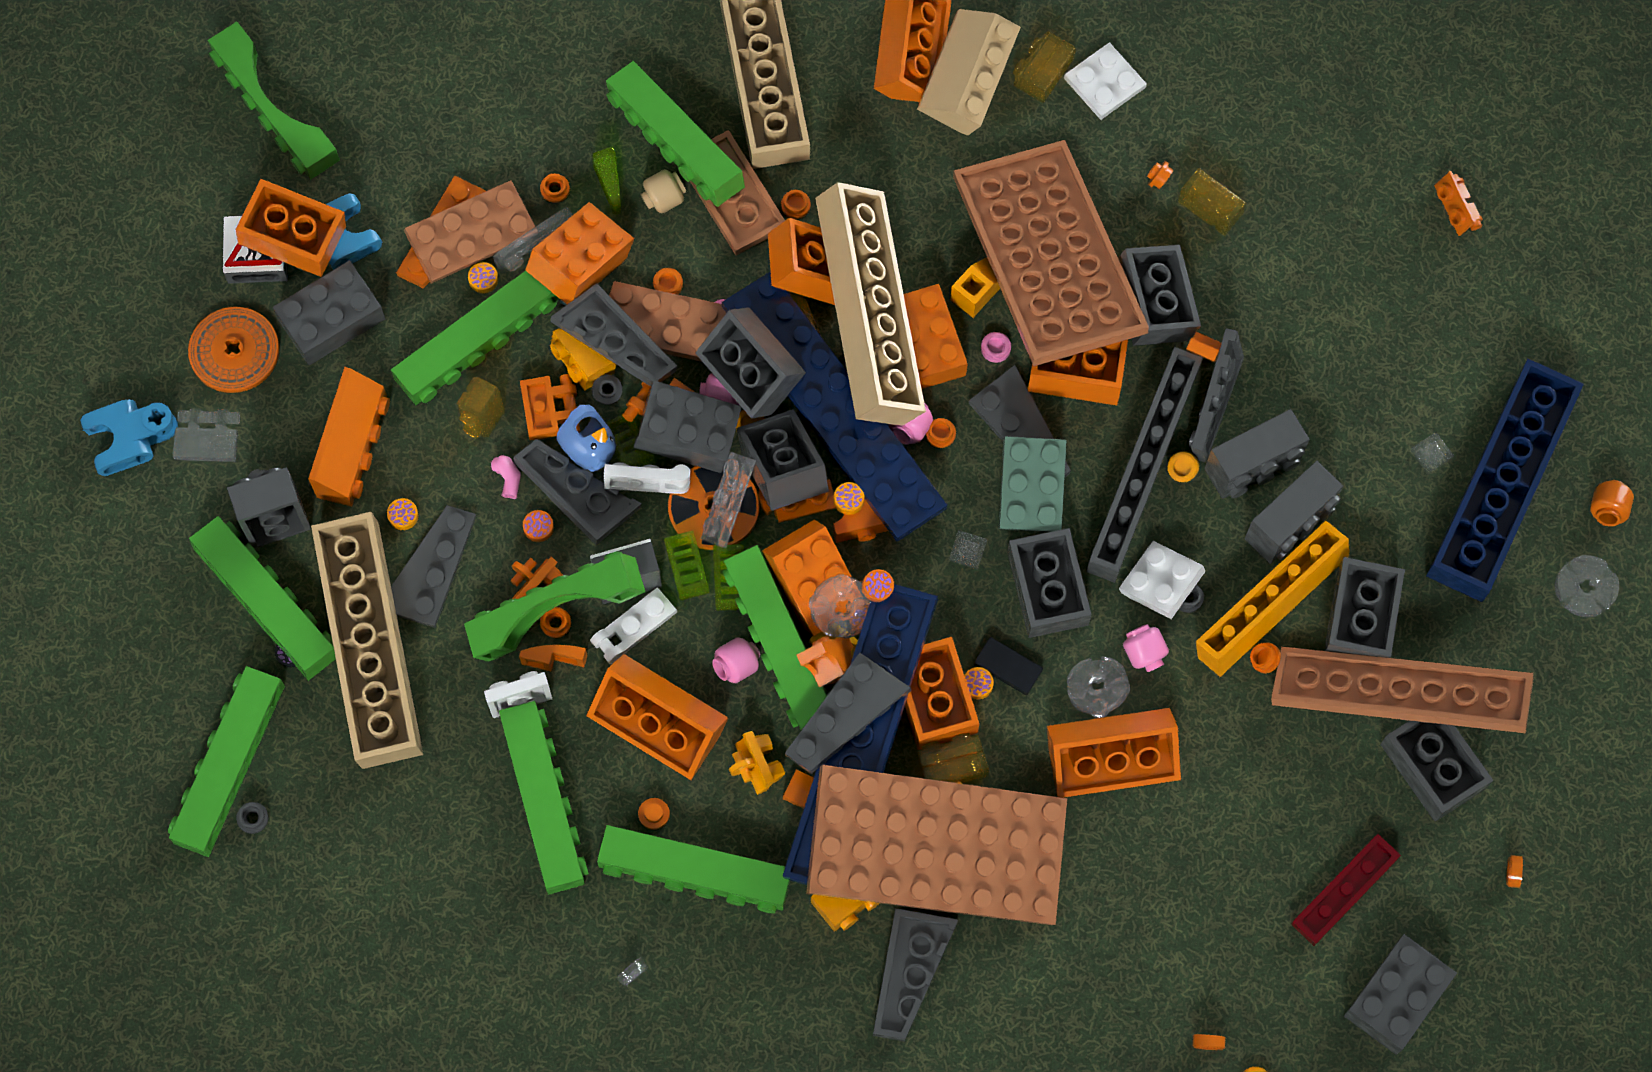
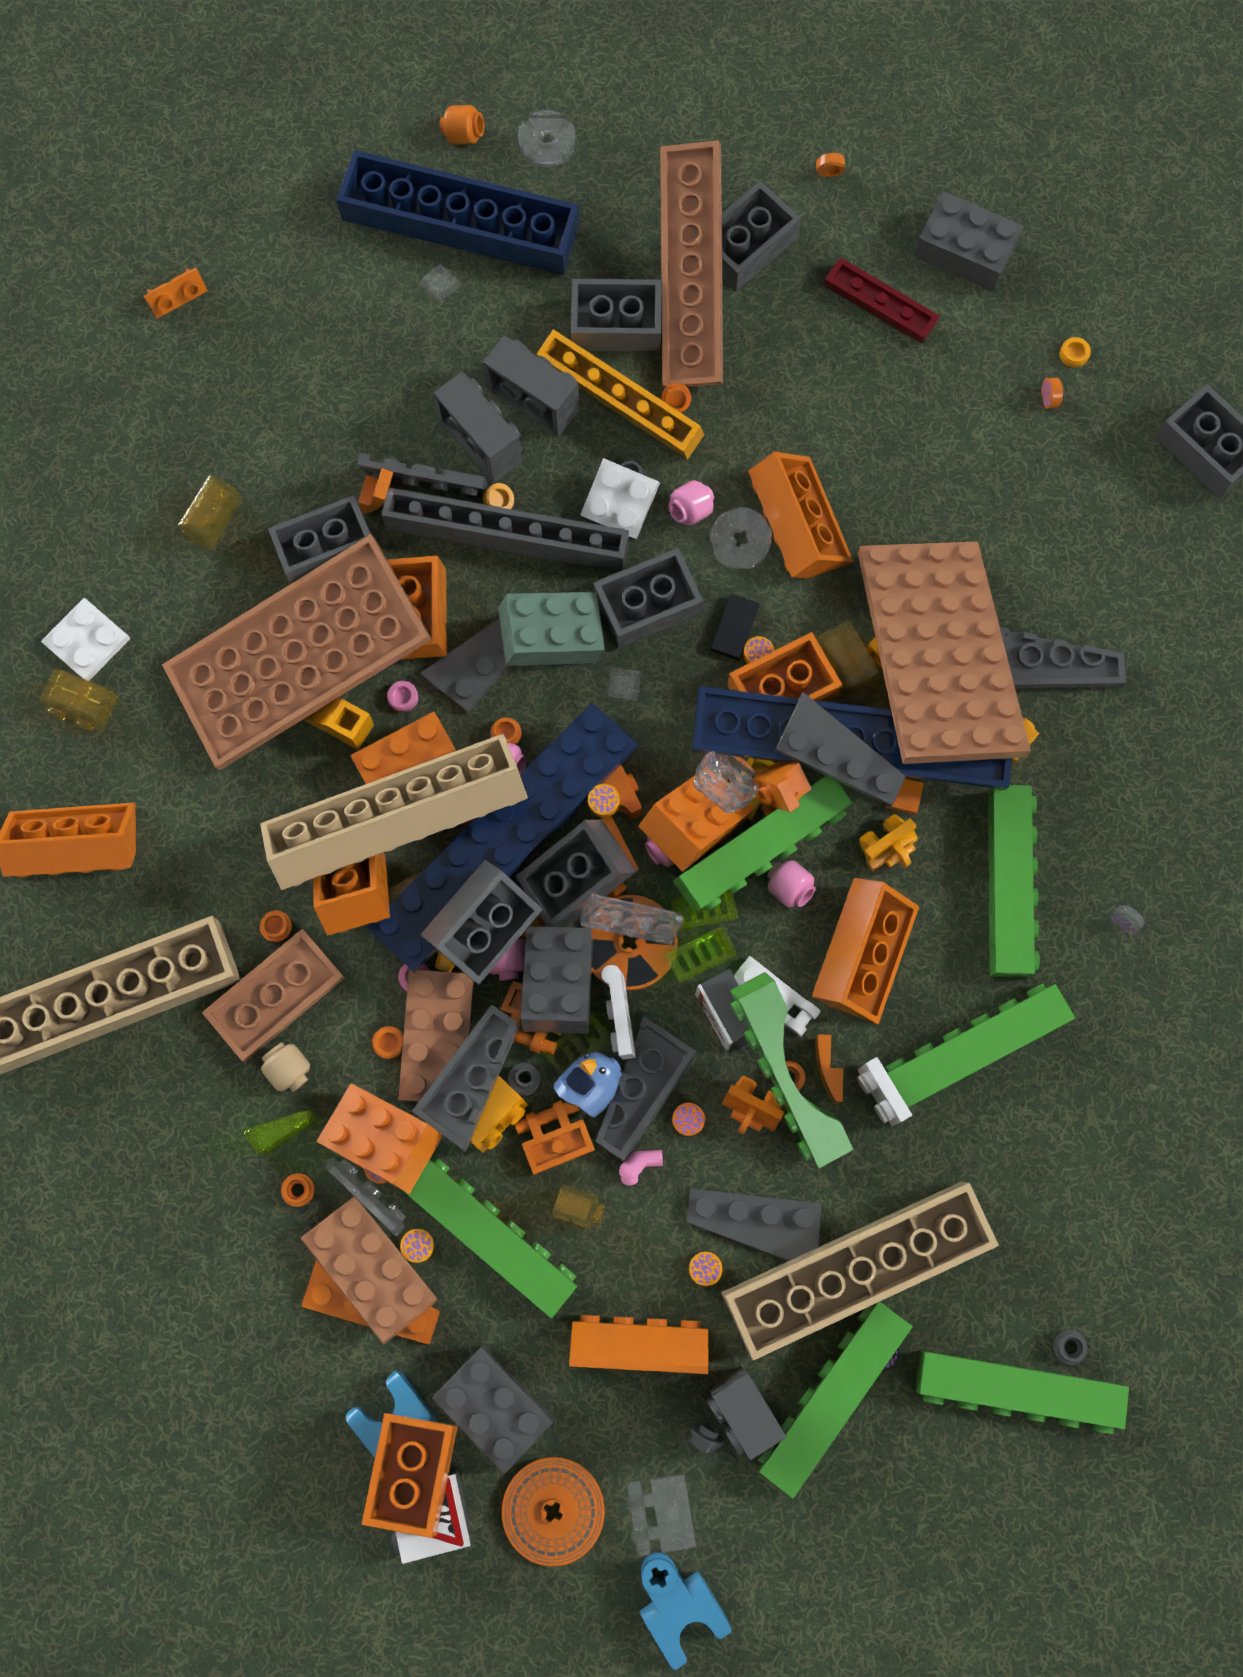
camera: 100 degrees left, 5 degrees up
(306, 143) = (190, 1602): bright green arch -> none
(653, 813) = (964, 934): orange plate -> none
(674, 134) = (217, 1067): bright green brick -> none
(877, 585) = (703, 743): orange tile -> none
(968, 69) = (94, 771): tan slope -> none
(1159, 174) = (186, 568): orange plate -> none

